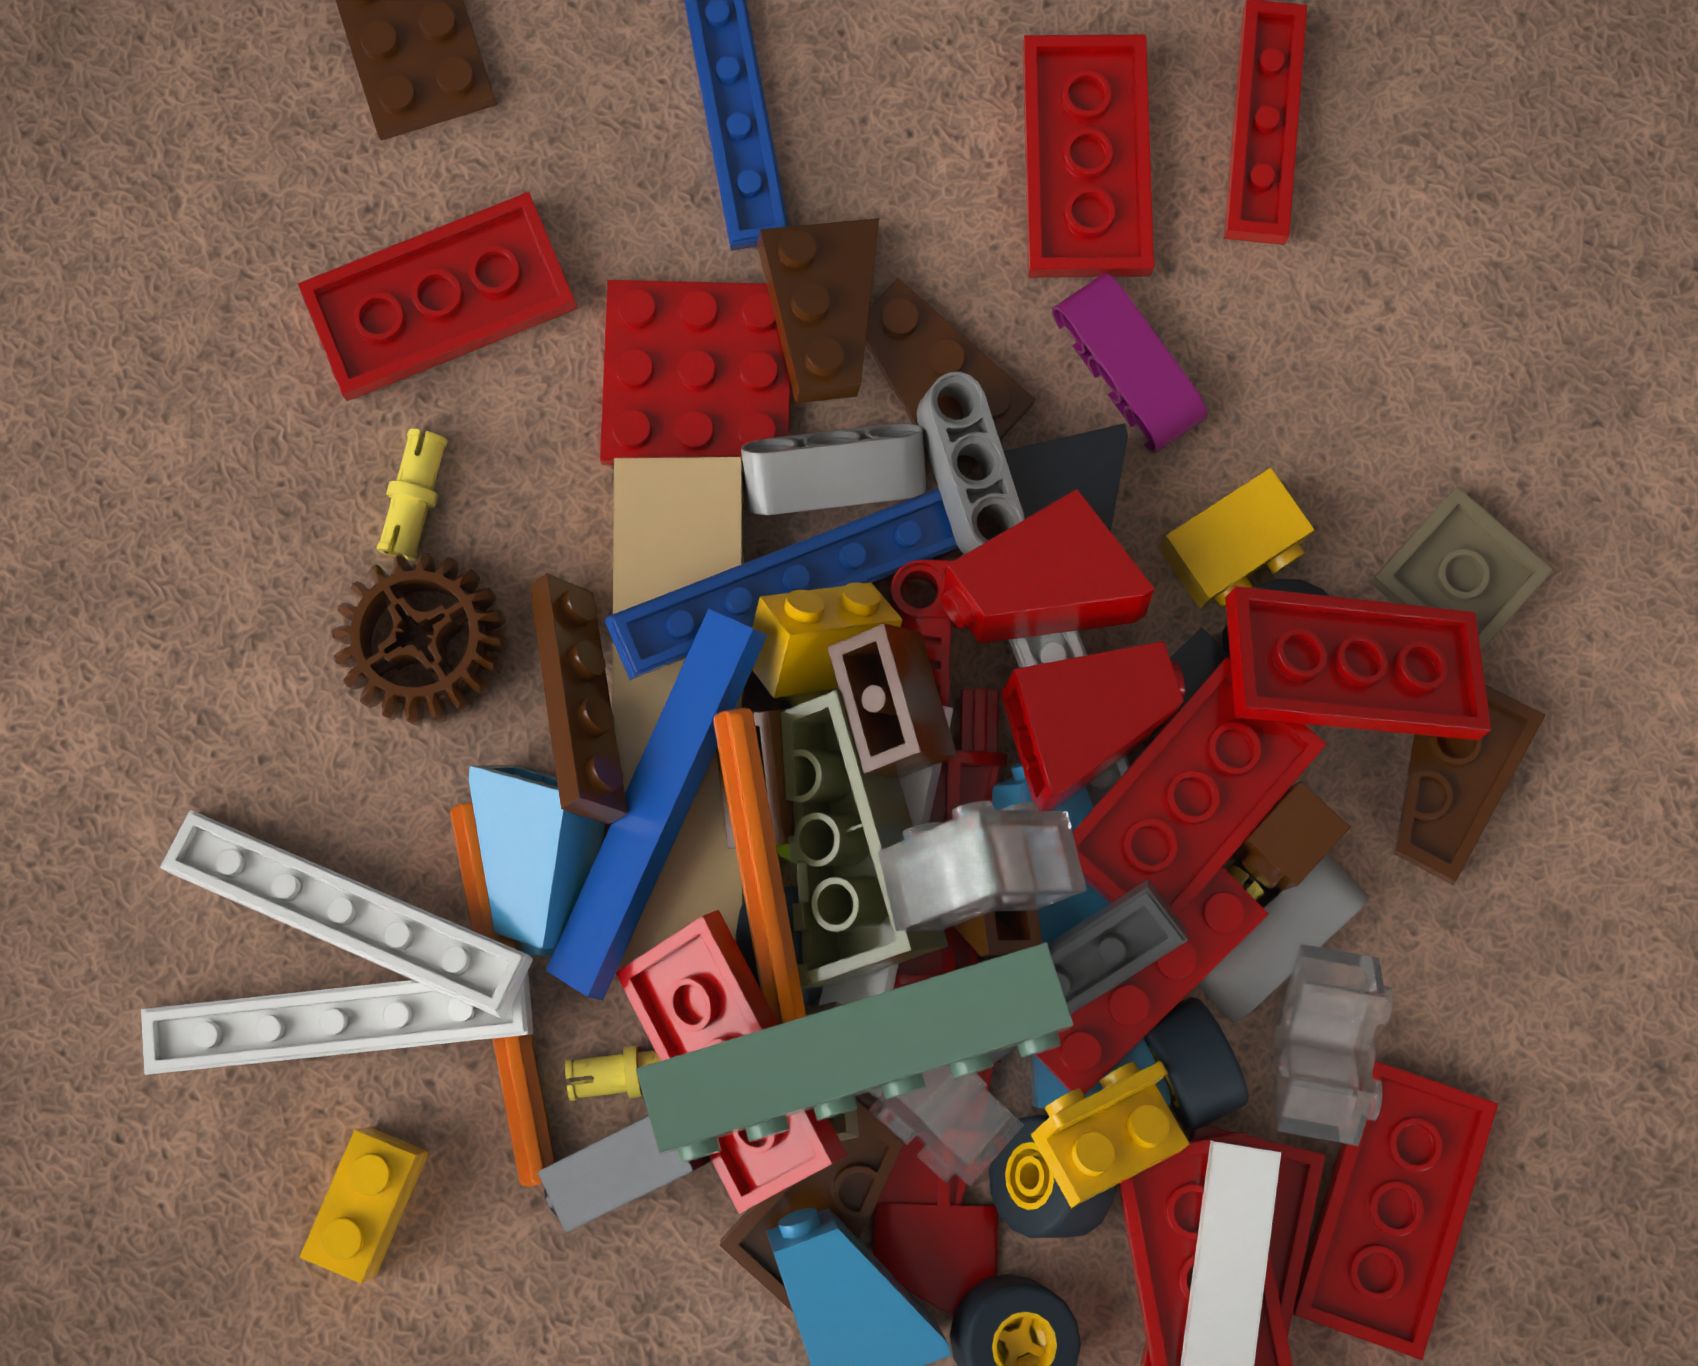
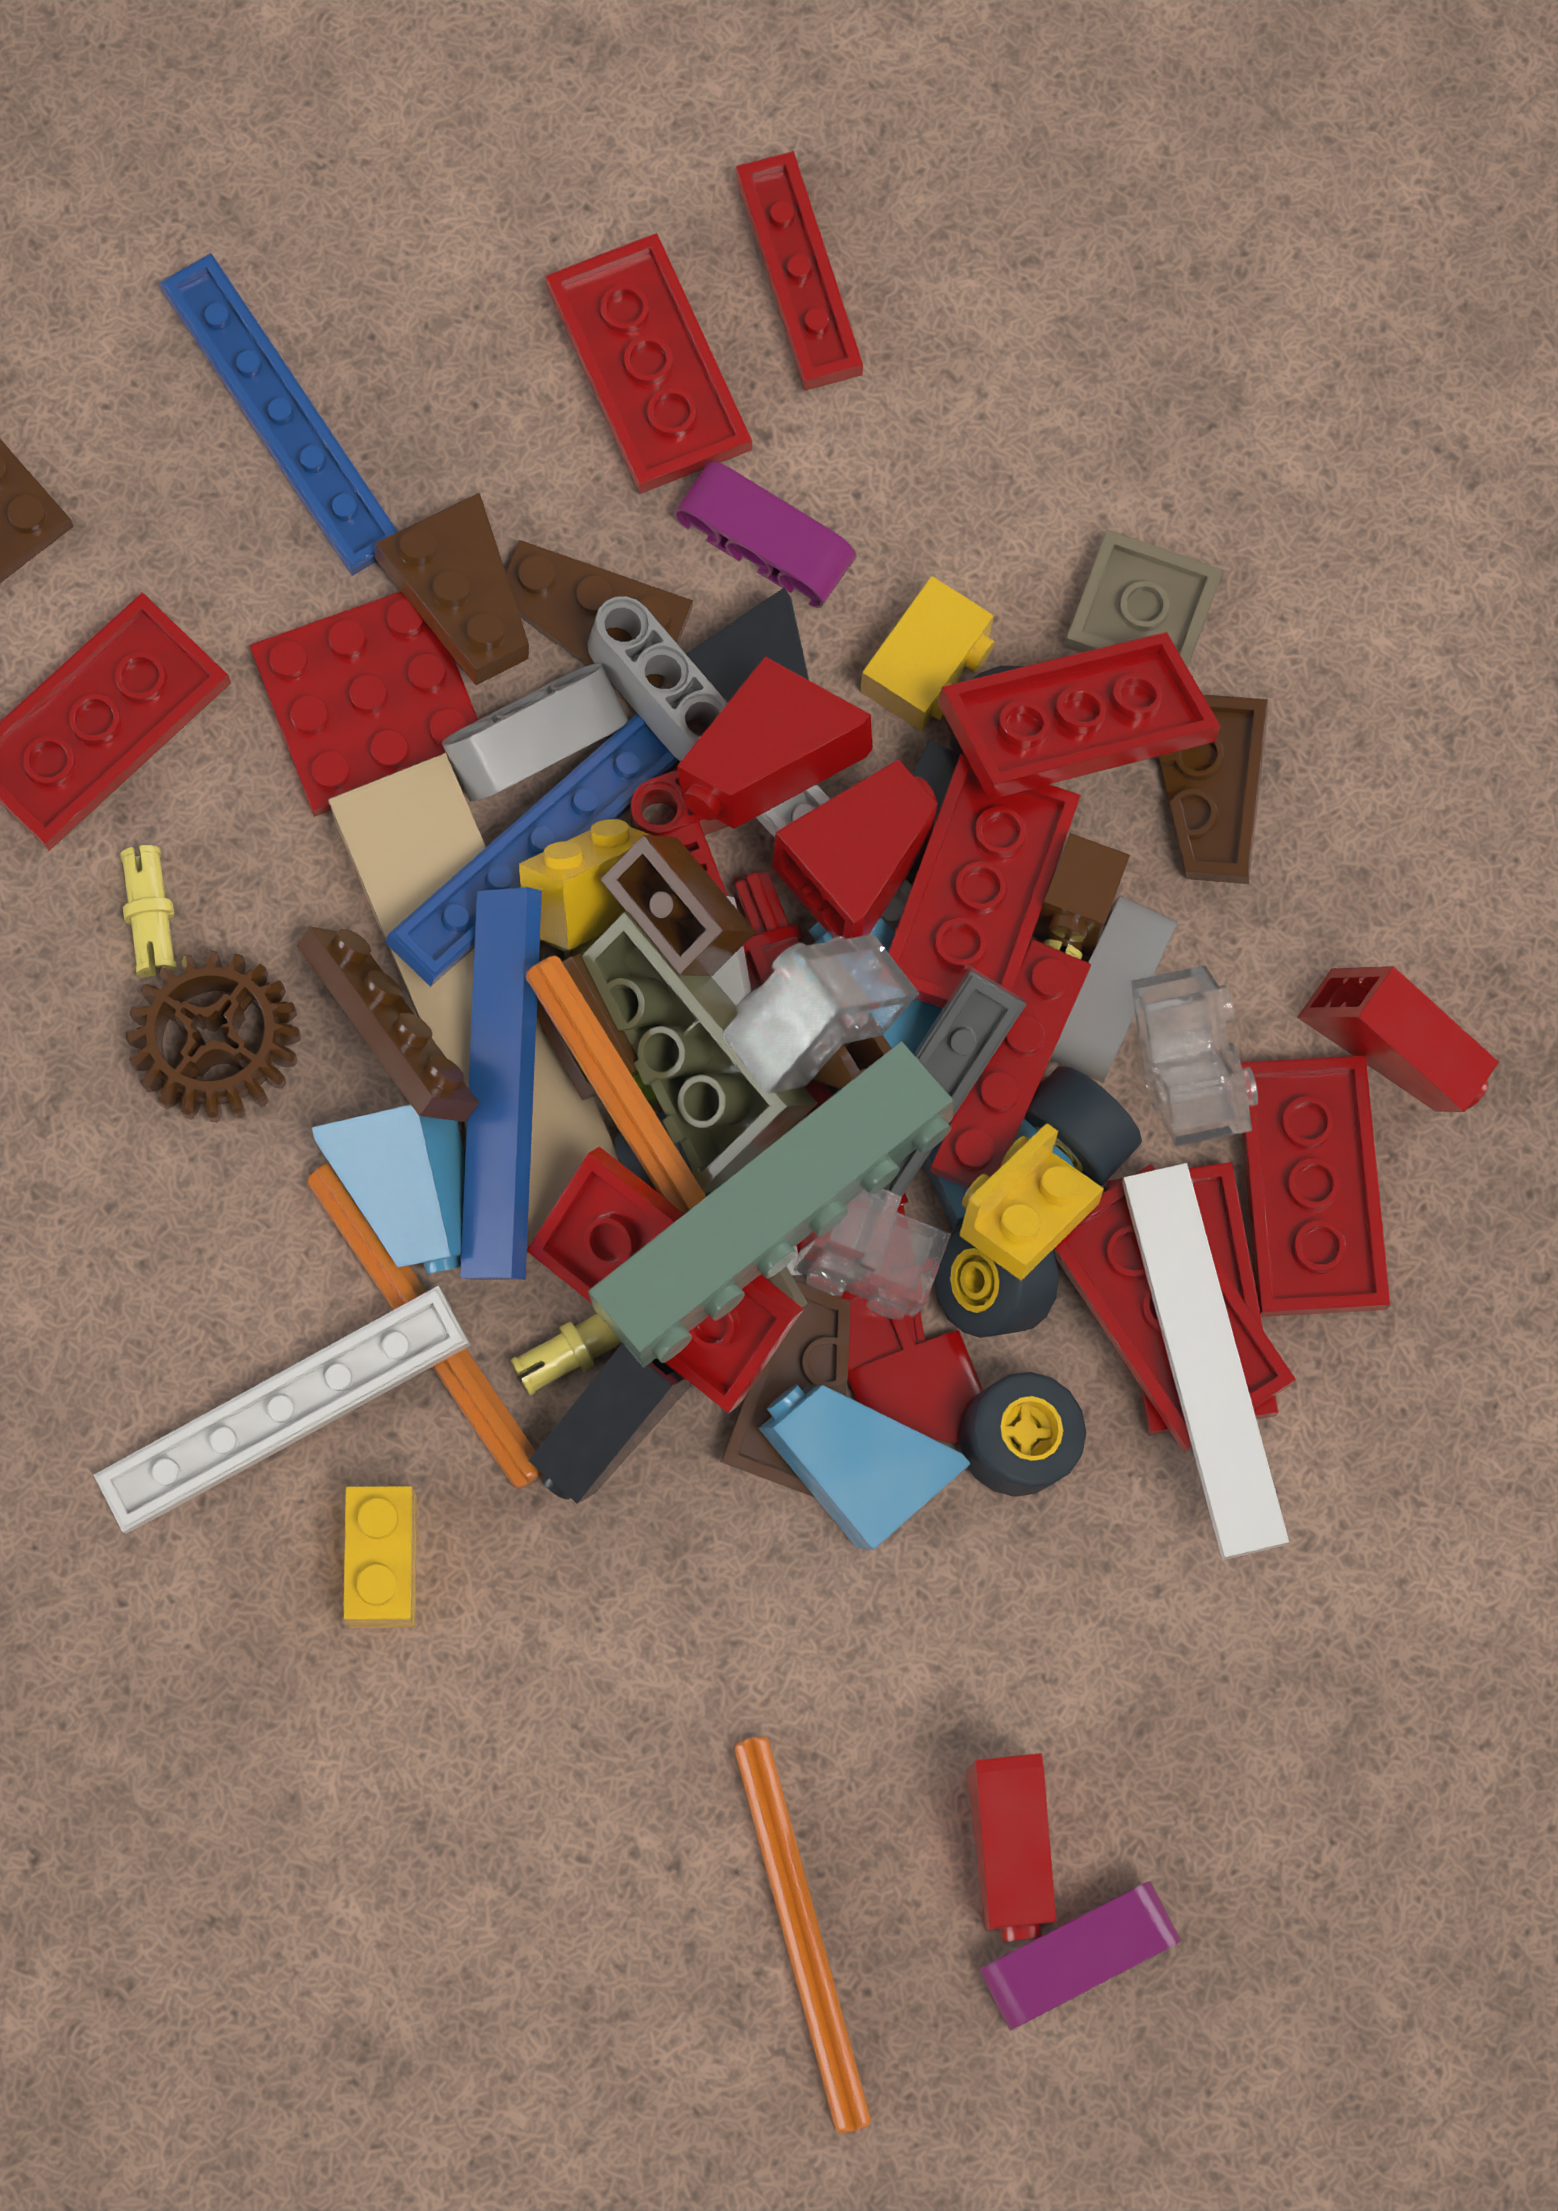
camera: 25 degrees left, 5 degrees down
(348, 914) = (251, 1306): white tile -> none
(1540, 1098) = (1402, 1036): none -> red slope

